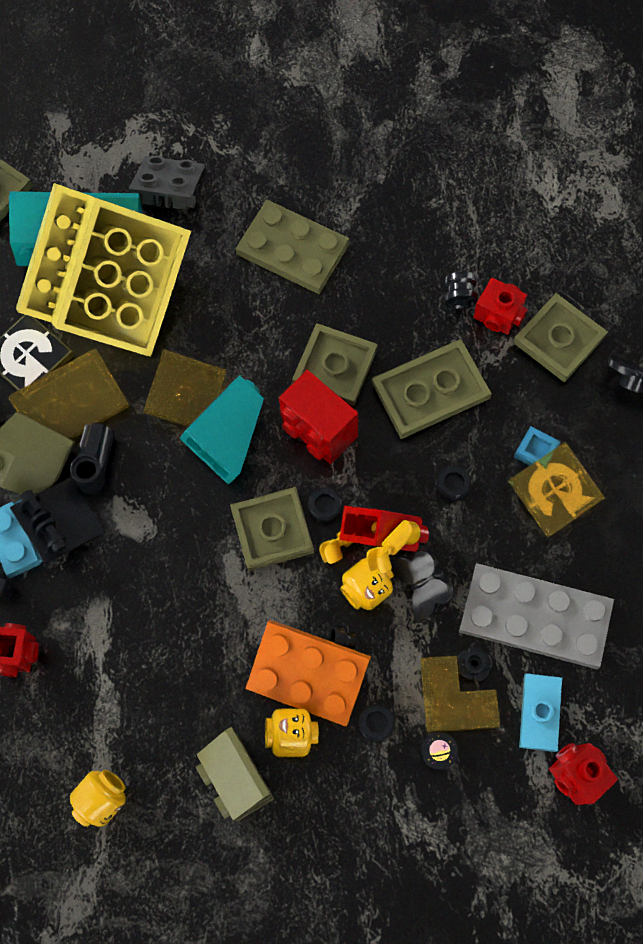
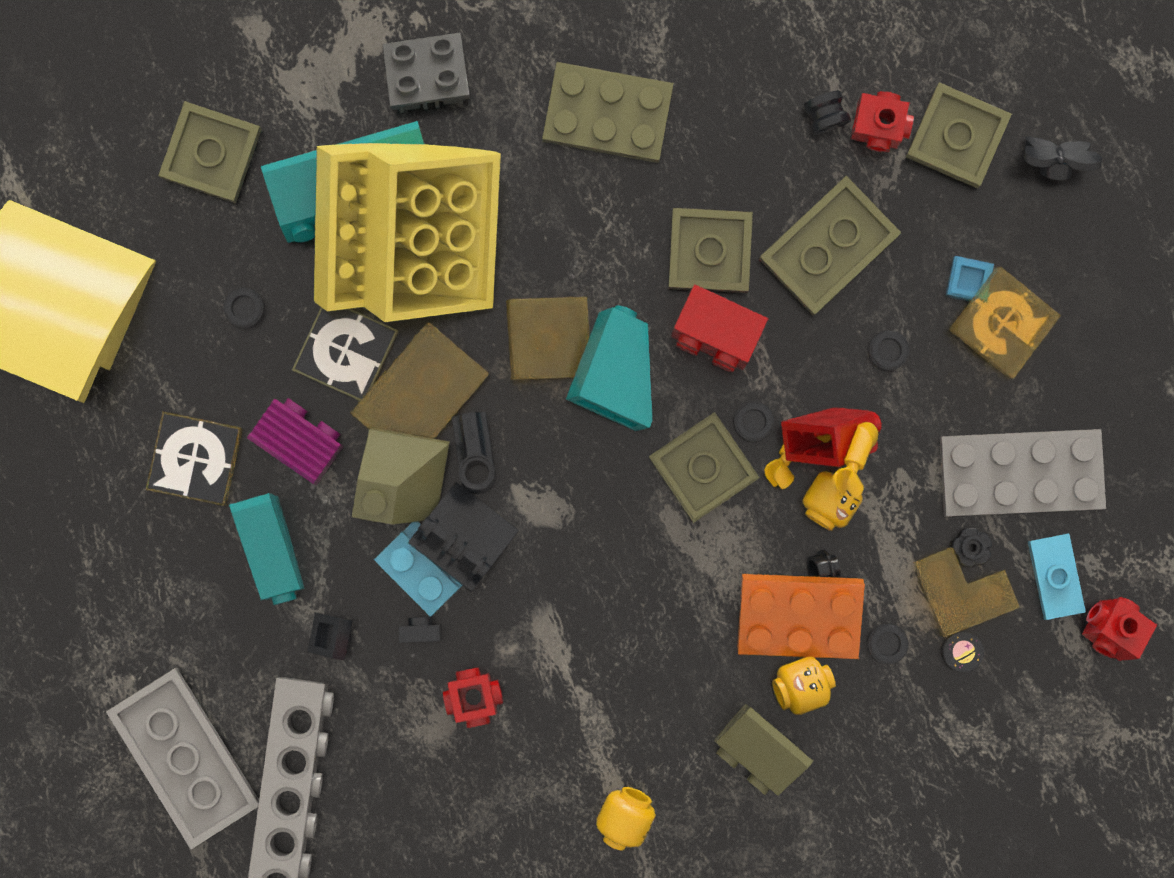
camera: 25 degrees left, 15 degrees up
(425, 580) = (897, 478): black animal -> none

